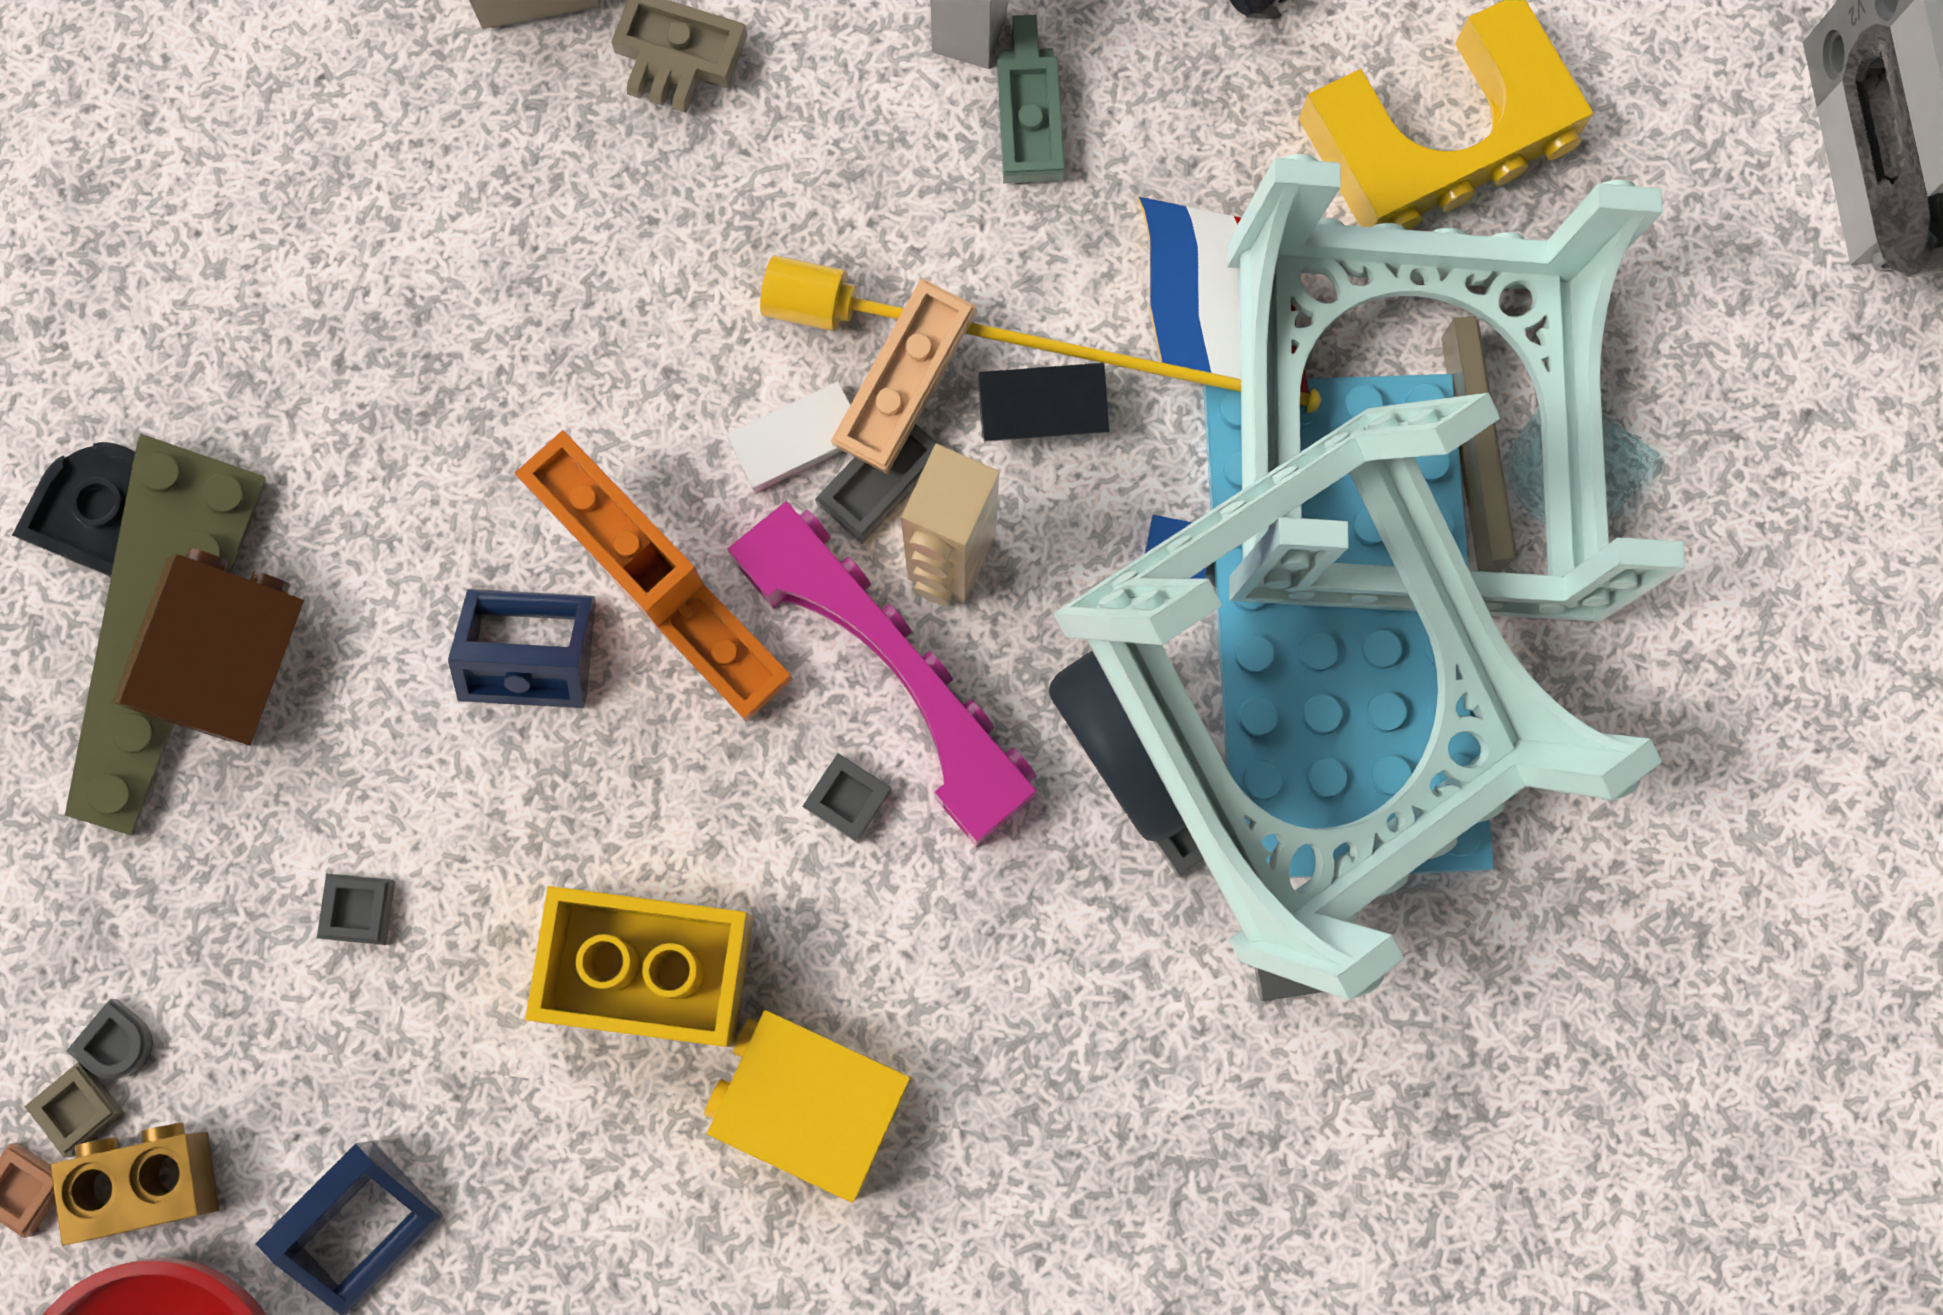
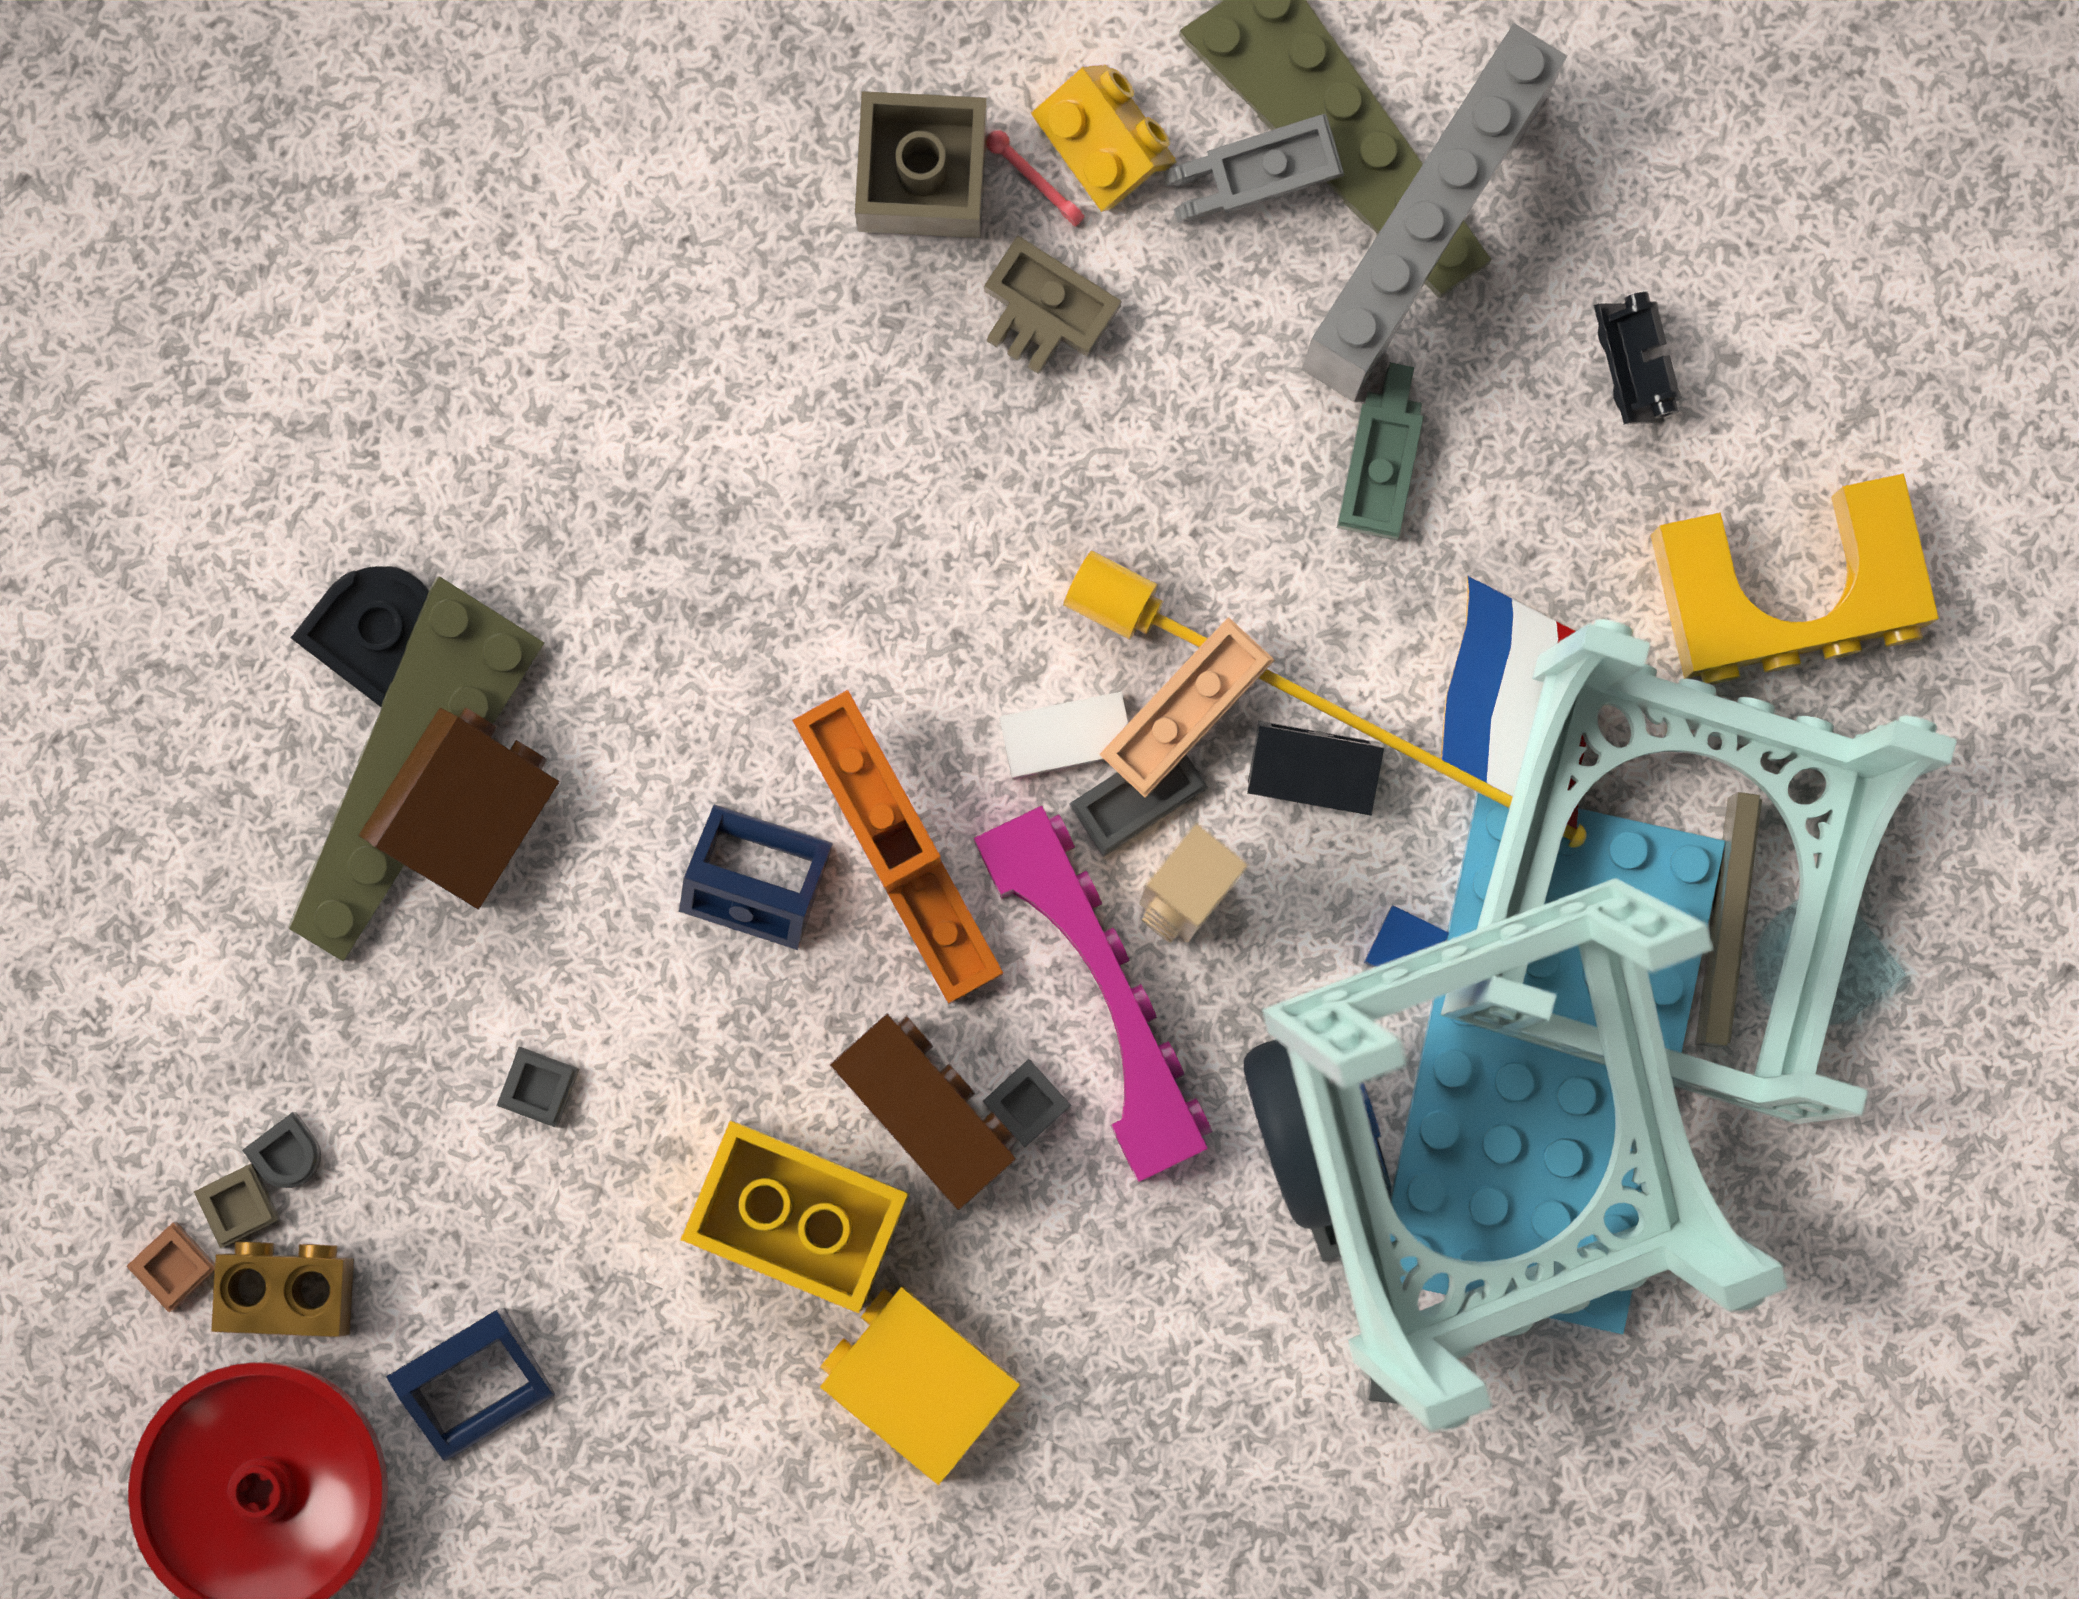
camera: 15 degrees right, 5 degrees up
(745, 823) = (926, 1109): none -> reddish brown brick

